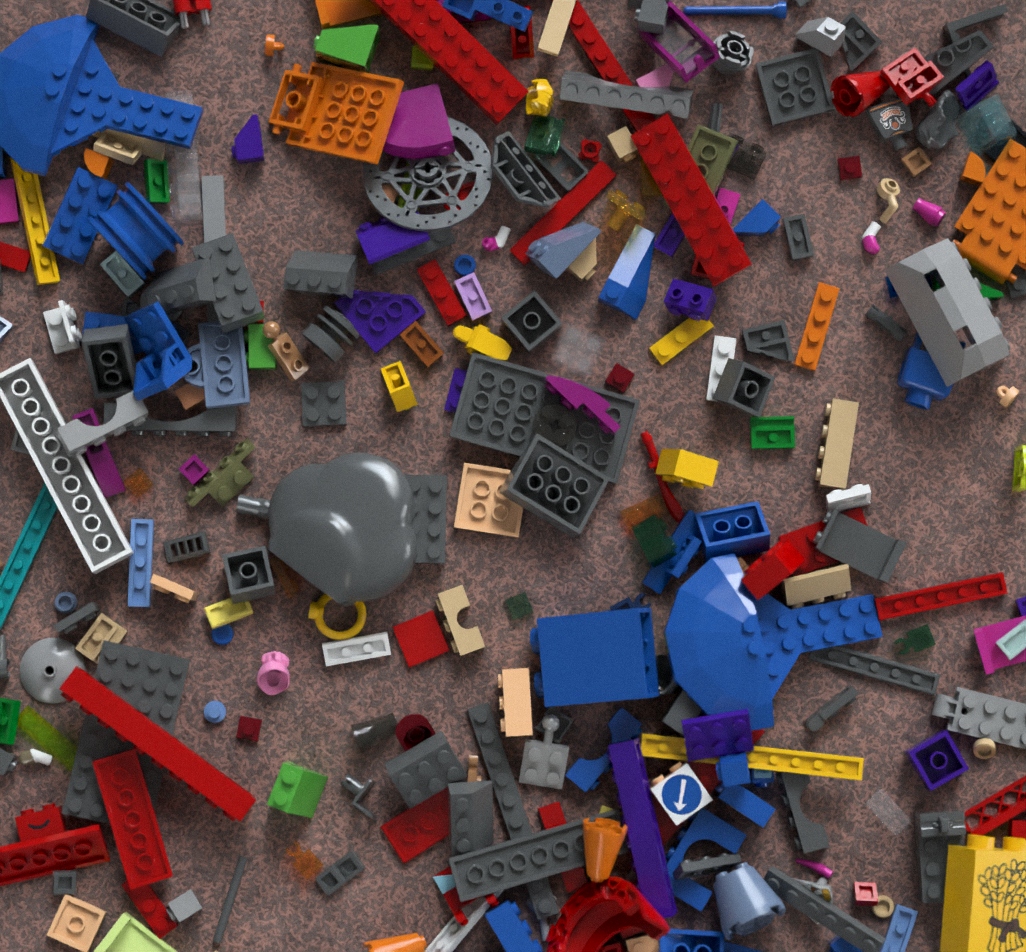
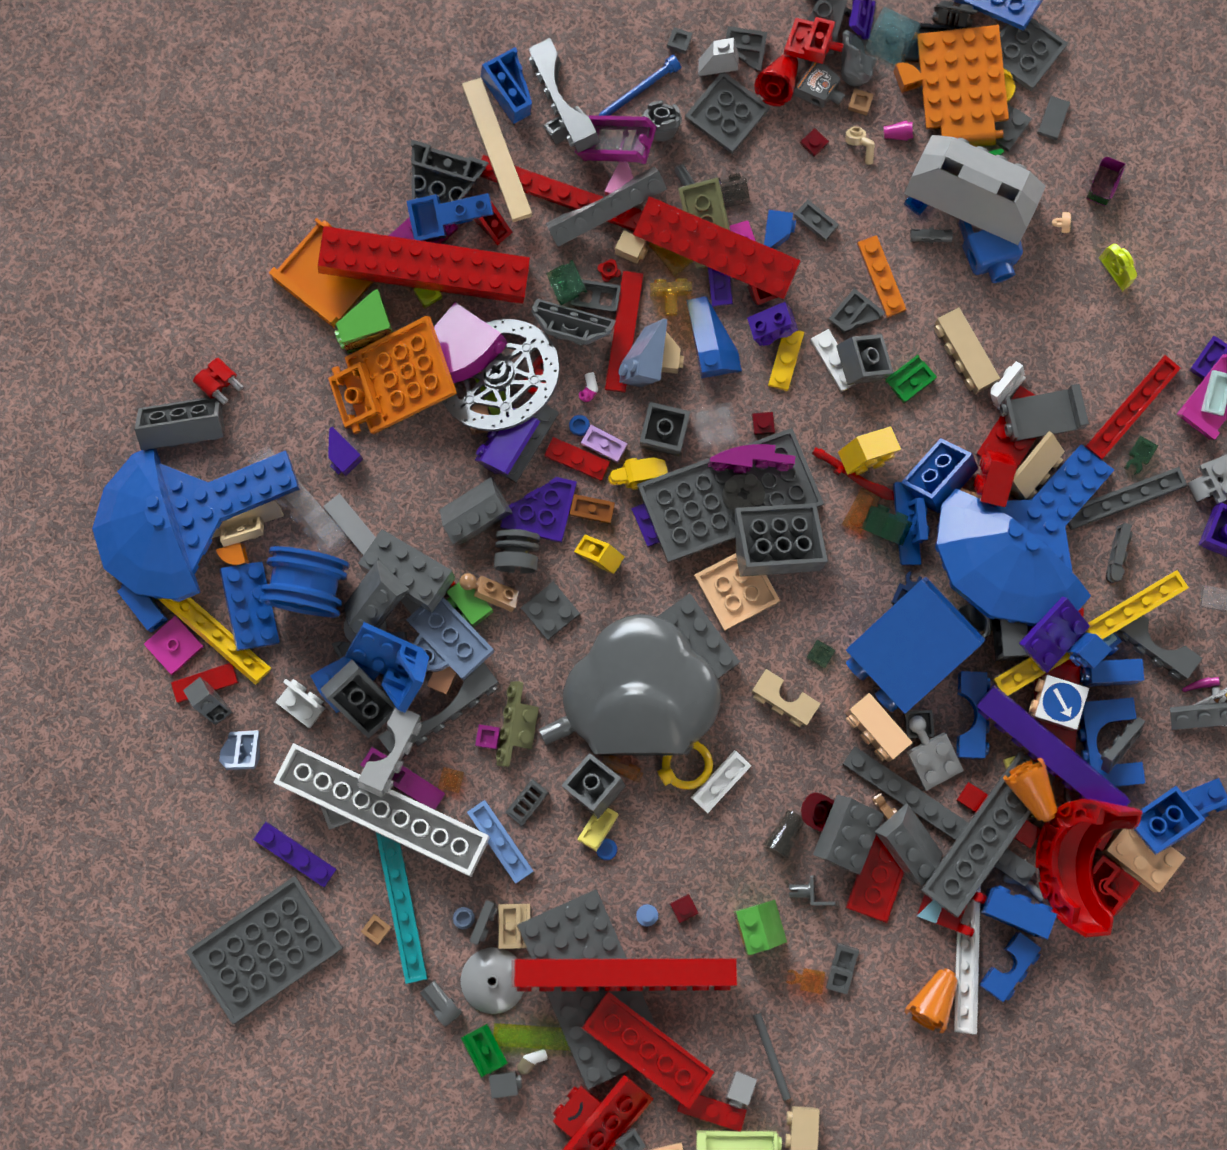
camera: 30 degrees left, 5 degrees down
(122, 274) = (317, 626): light aqua plate -> none
(156, 181) = (290, 533): green plate -> none
(181, 592) = (552, 839): light nougat plate -> none
(270, 45) = (303, 367): orange tile -> none
(273, 674) = (670, 849): bright pink hair -> none
(421, 638) = (764, 736): red tile -> none
(539, 98) = (541, 258): yellow hair -> none
(745, 901) = (1172, 749): sand blue cone -> none
(869, 240) = (870, 183): dark pink arm -> none

